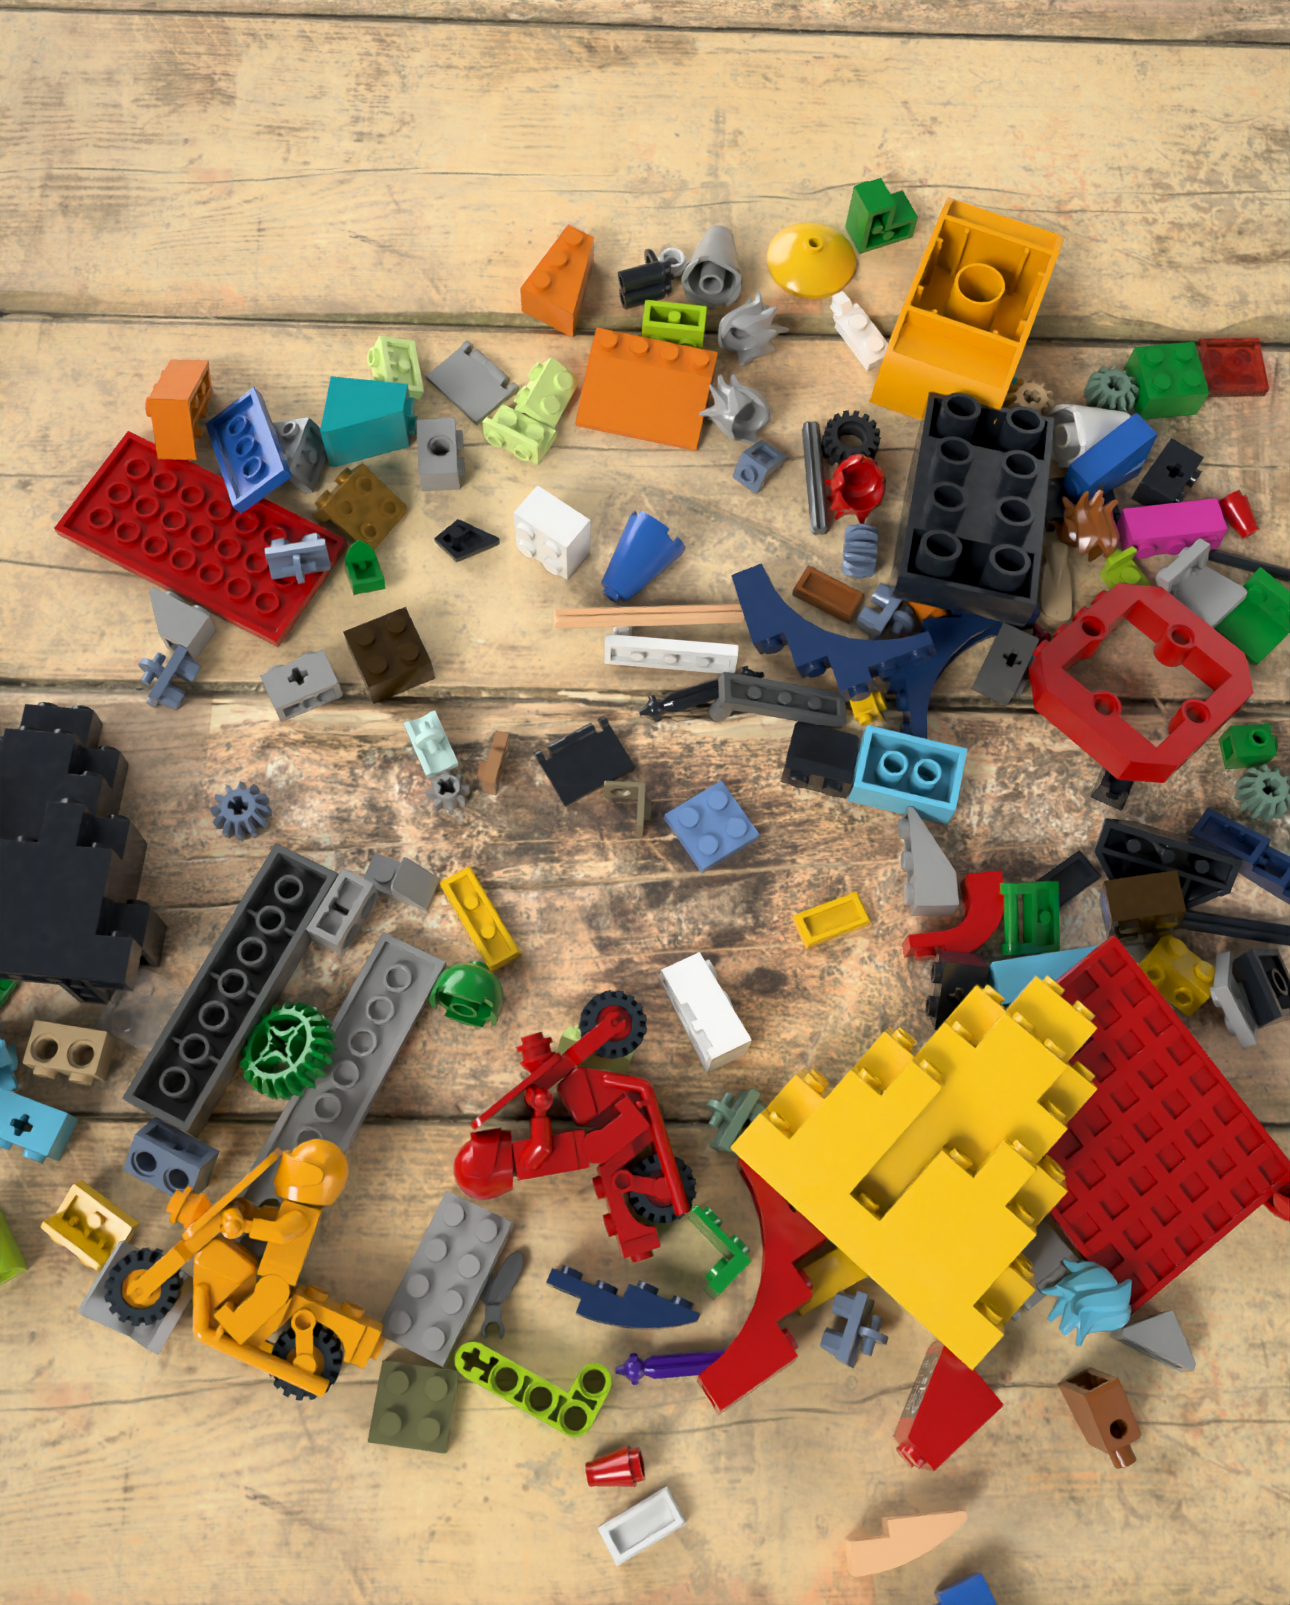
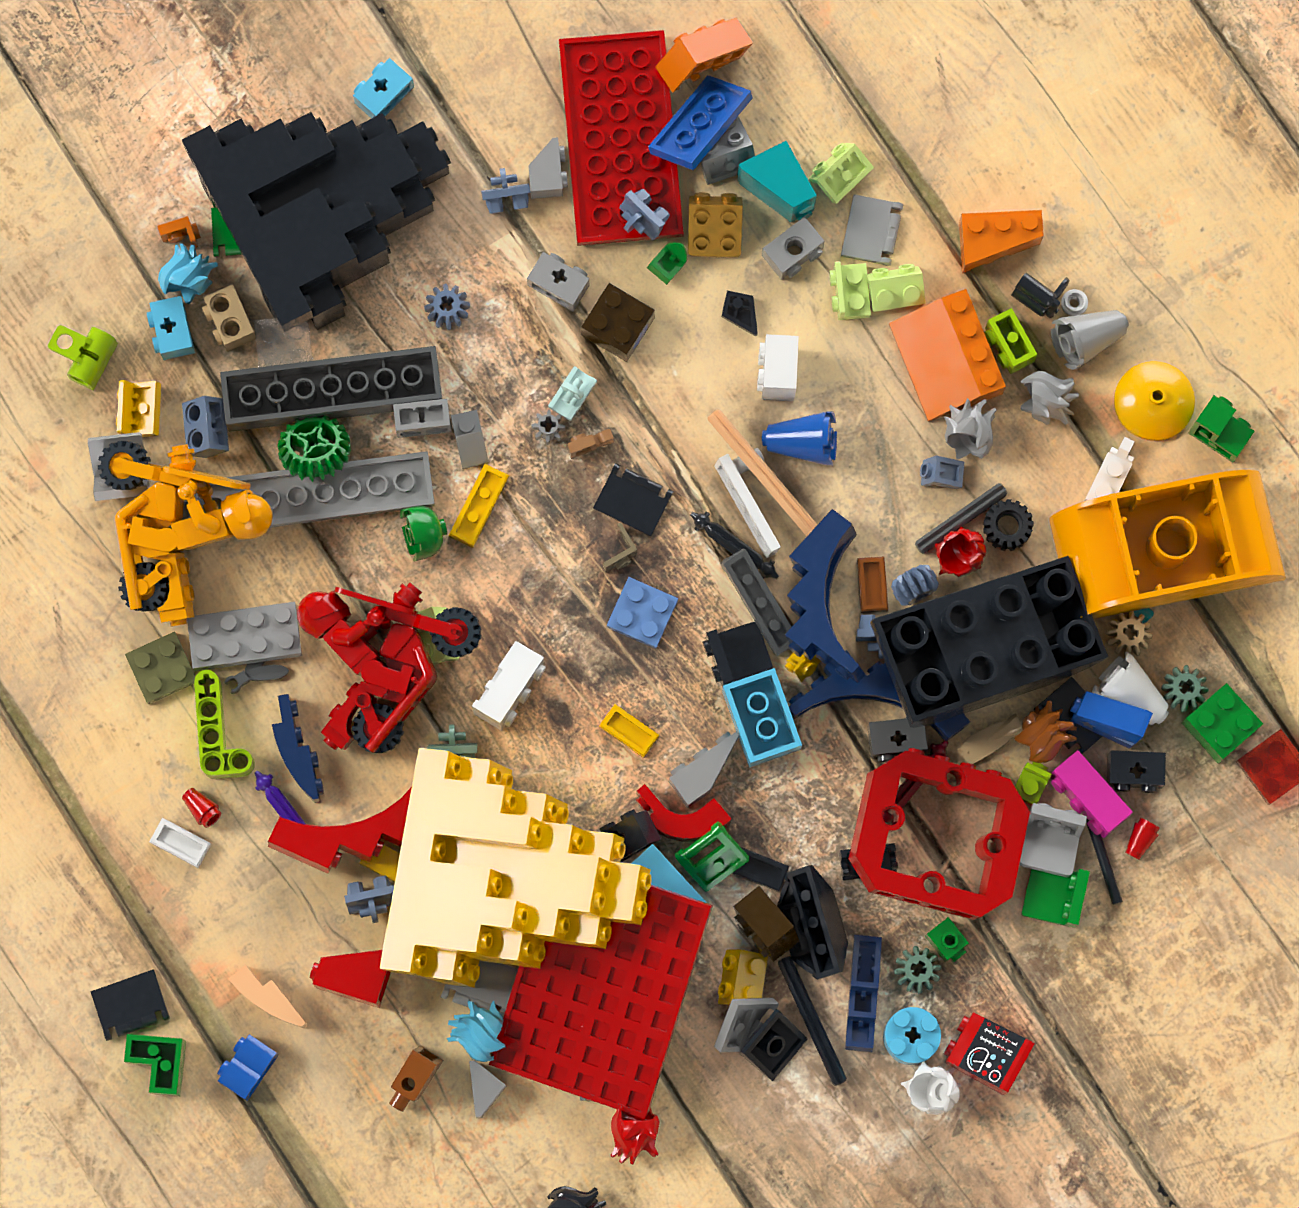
camera: 60 degrees right, 10 degrees up
(731, 1248) = (351, 799): green bracket -> none

